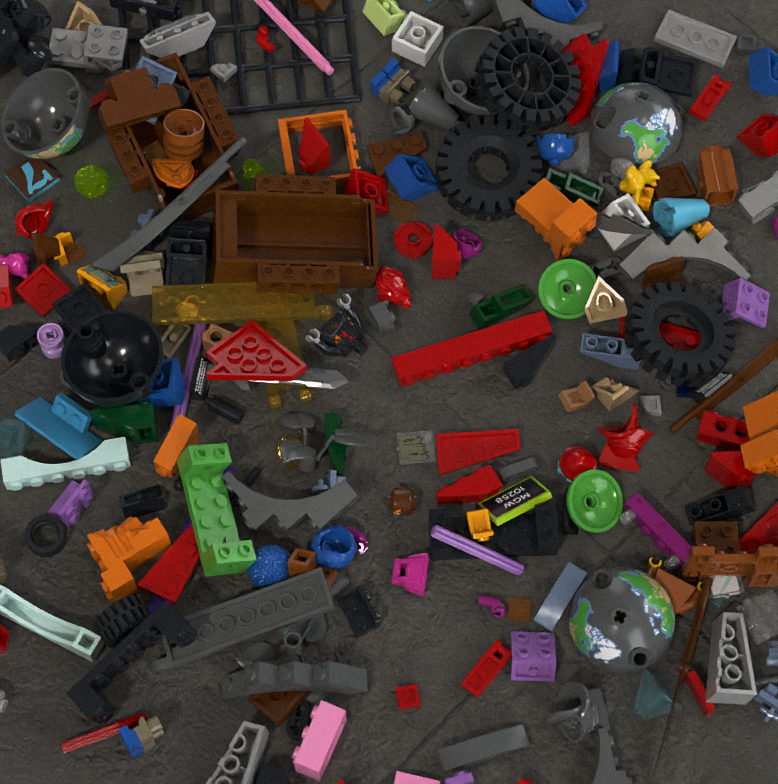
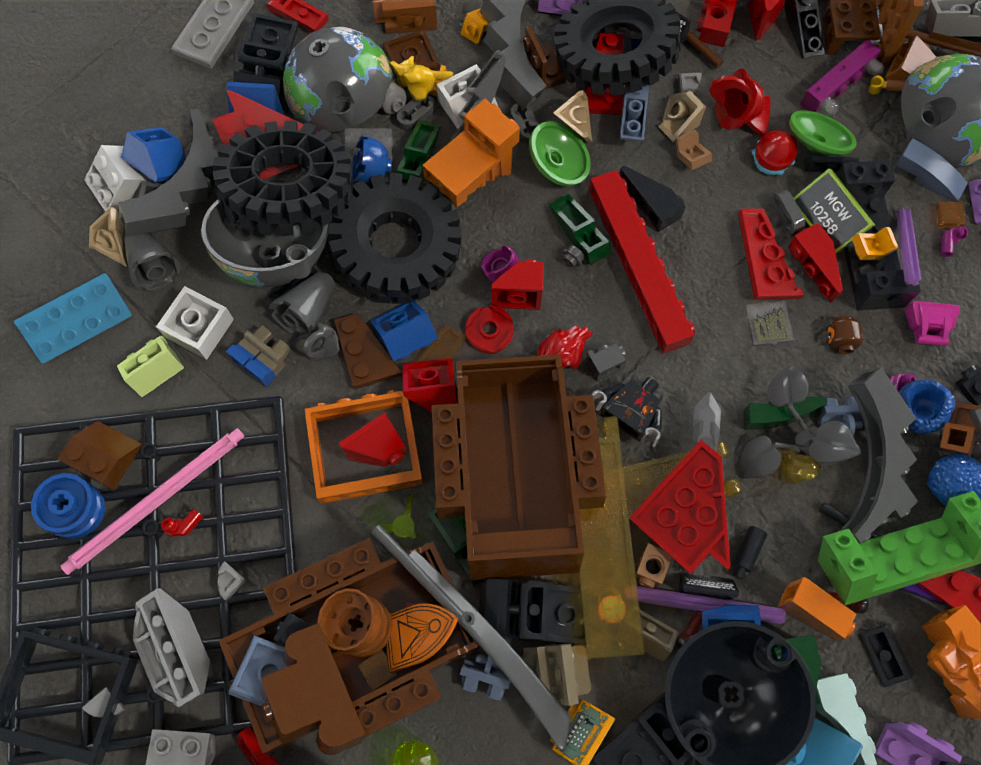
camera: 90 degrees left, 5 degrees up
(678, 214) = (458, 44): medium azure cone -> none

